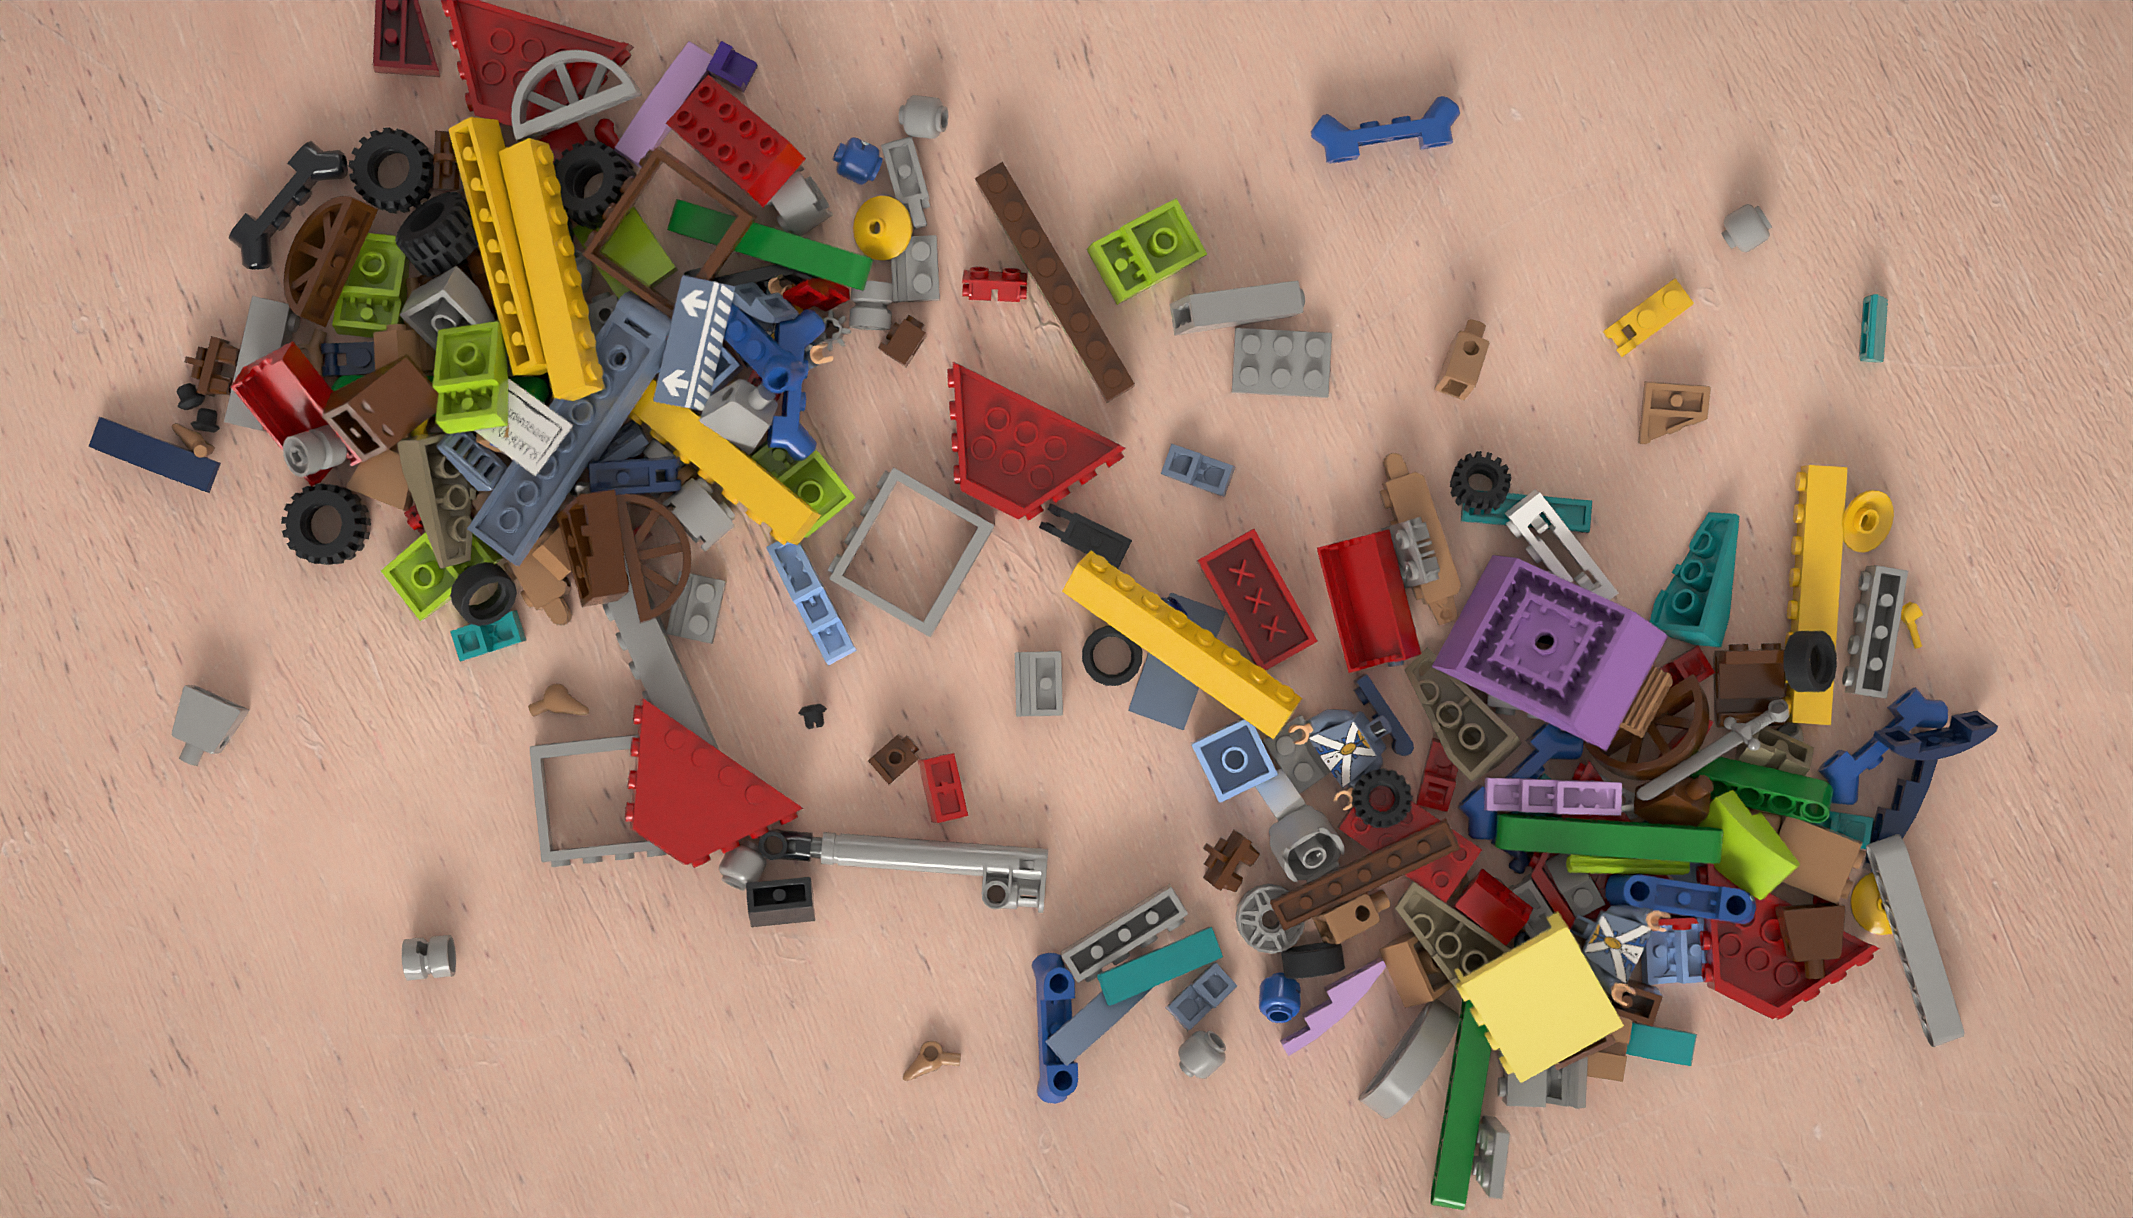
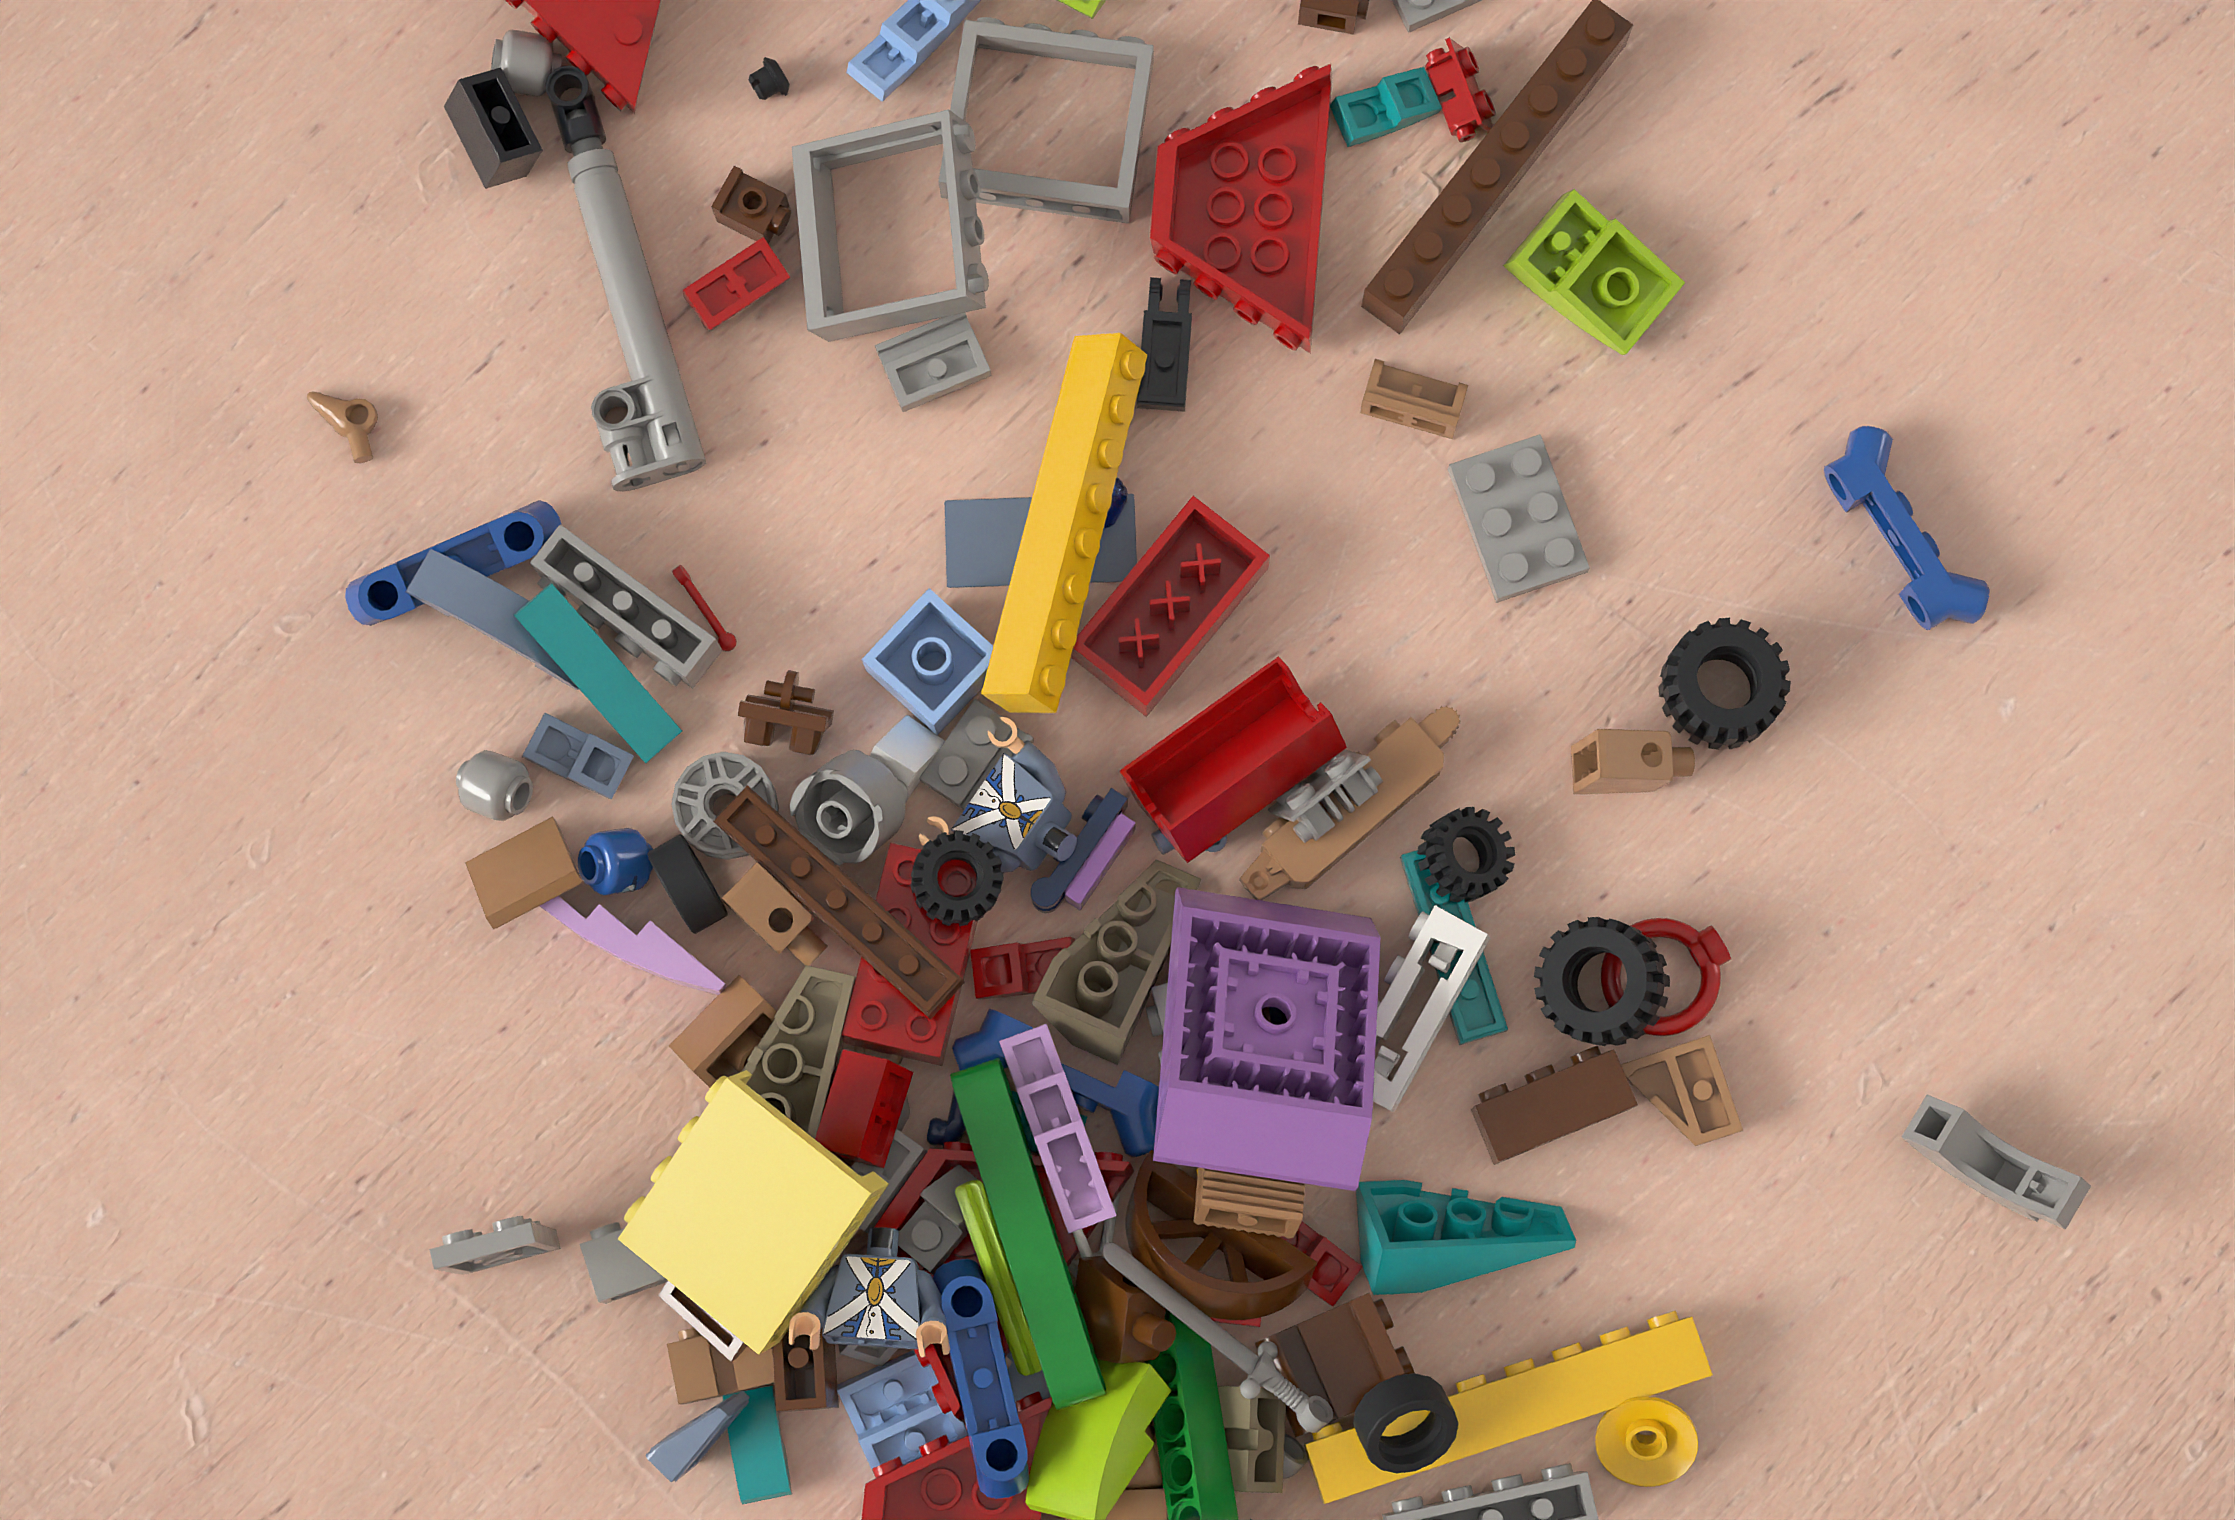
camera: 75 degrees right, 10 degrees down
(931, 723) = (818, 226): none -> light grey window
(985, 335) = (1386, 108): none -> teal slope
(1101, 677) = (981, 422): black tyre -> none
(1165, 878) = (725, 639): none -> red hinge
(1181, 395) = (1413, 400): none -> medium nougat hinge
(1198, 470) = (1320, 462): sand blue slope -> none
(1236, 307) = (1570, 421): light grey slope -> none
(1265, 1056) = (523, 873): none -> medium nougat tile
(1395, 704) = (1099, 861): none -> medium lavender tile
(1411, 1060) = (600, 1083): light grey window -> none
(1458, 263) = (1748, 652): none -> black tyre
(1461, 1112) = (533, 1192): green beam -> none
(1568, 1085) = (645, 1324): light grey plate -> none
(1591, 362) = (1708, 954): none -> red piece
(1599, 458) = (1561, 974): none -> black tyre
(1644, 1080) = (690, 1443): none -> sand blue slope
(1649, 316) = (1804, 1007): yellow plate -> none
(1649, 492) = (1552, 1104): none -> reddish brown brick
(1746, 228) = (1993, 1092): light grey head -> none
(1791, 246) = (1992, 1166): none -> light grey arch
(1873, 328) = (1930, 1343): teal slope -> none

